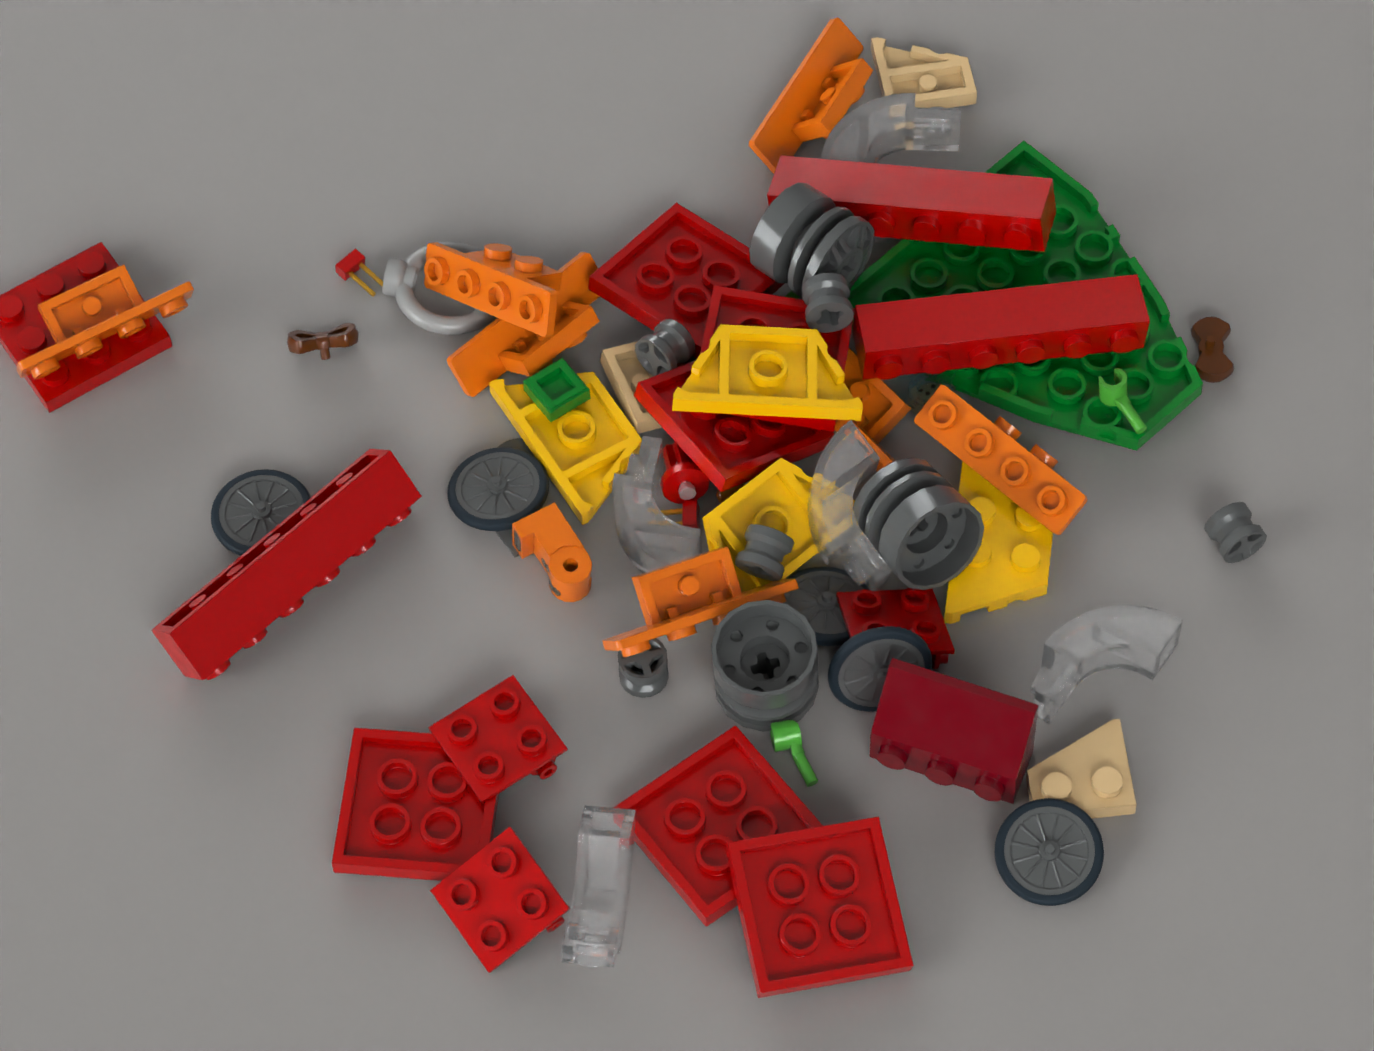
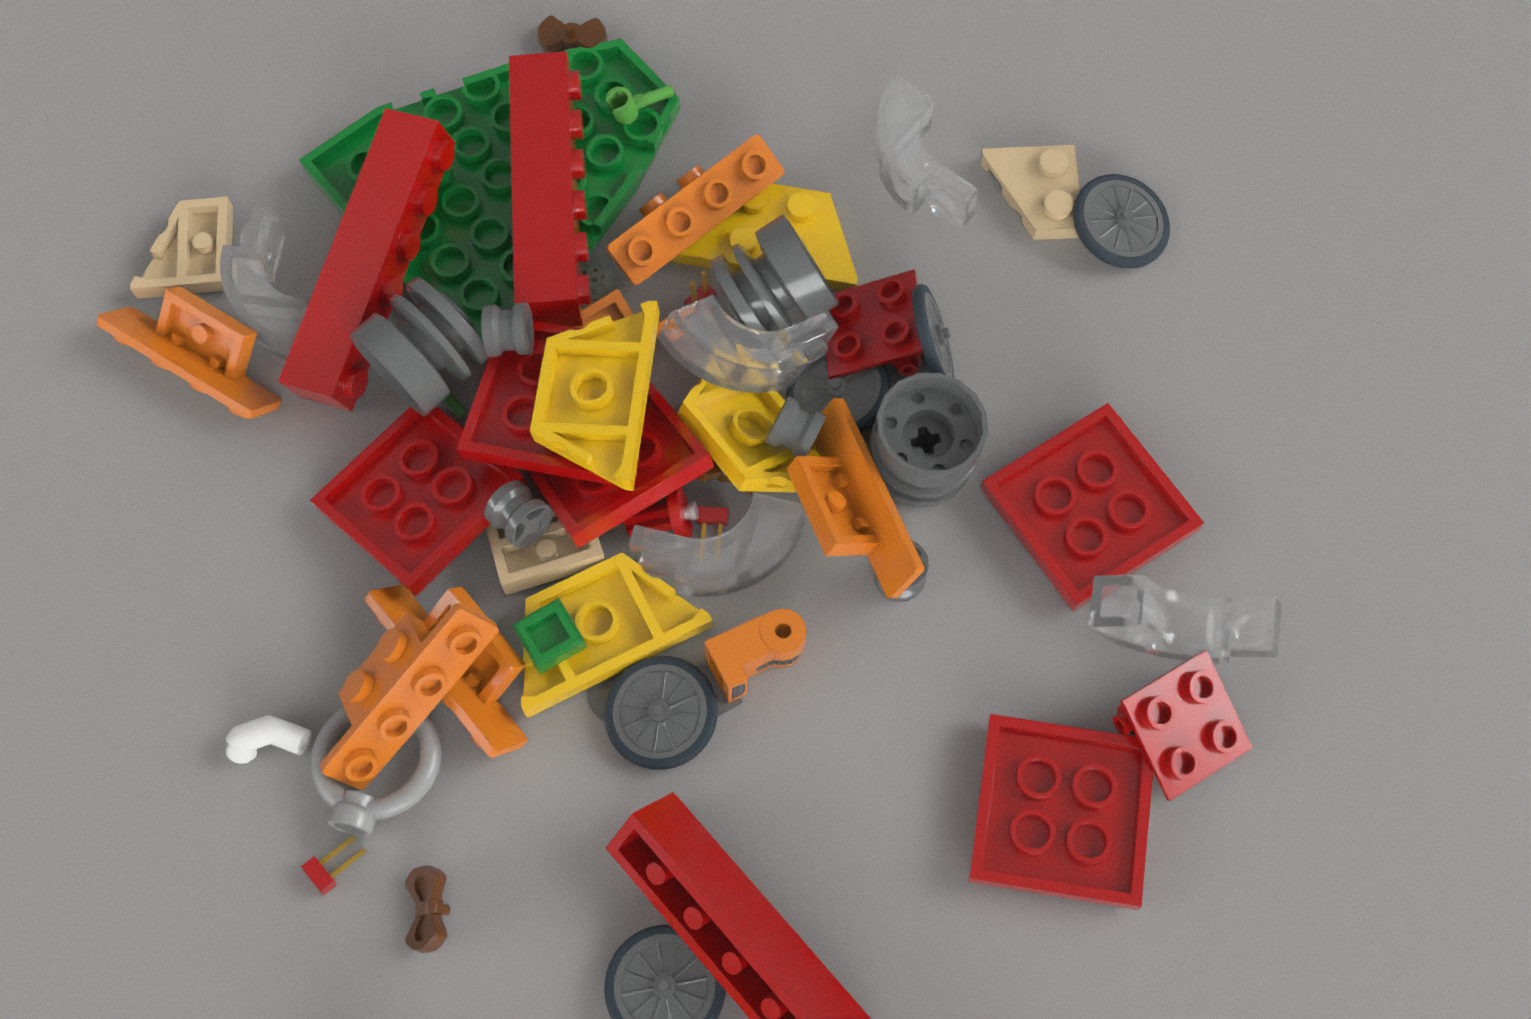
camera: 85 degrees left, 10 degrees up
(469, 206) = (266, 730): none -> white arm
(499, 739) = (993, 719): red hinge -> none
(787, 736) = (996, 433): bright green hand -> none
(818, 907) = (1195, 416): red plate -> none
(953, 731) = (1009, 280): dark red slope -> none
(1235, 532) = (788, 33): dark grey wheel -> none

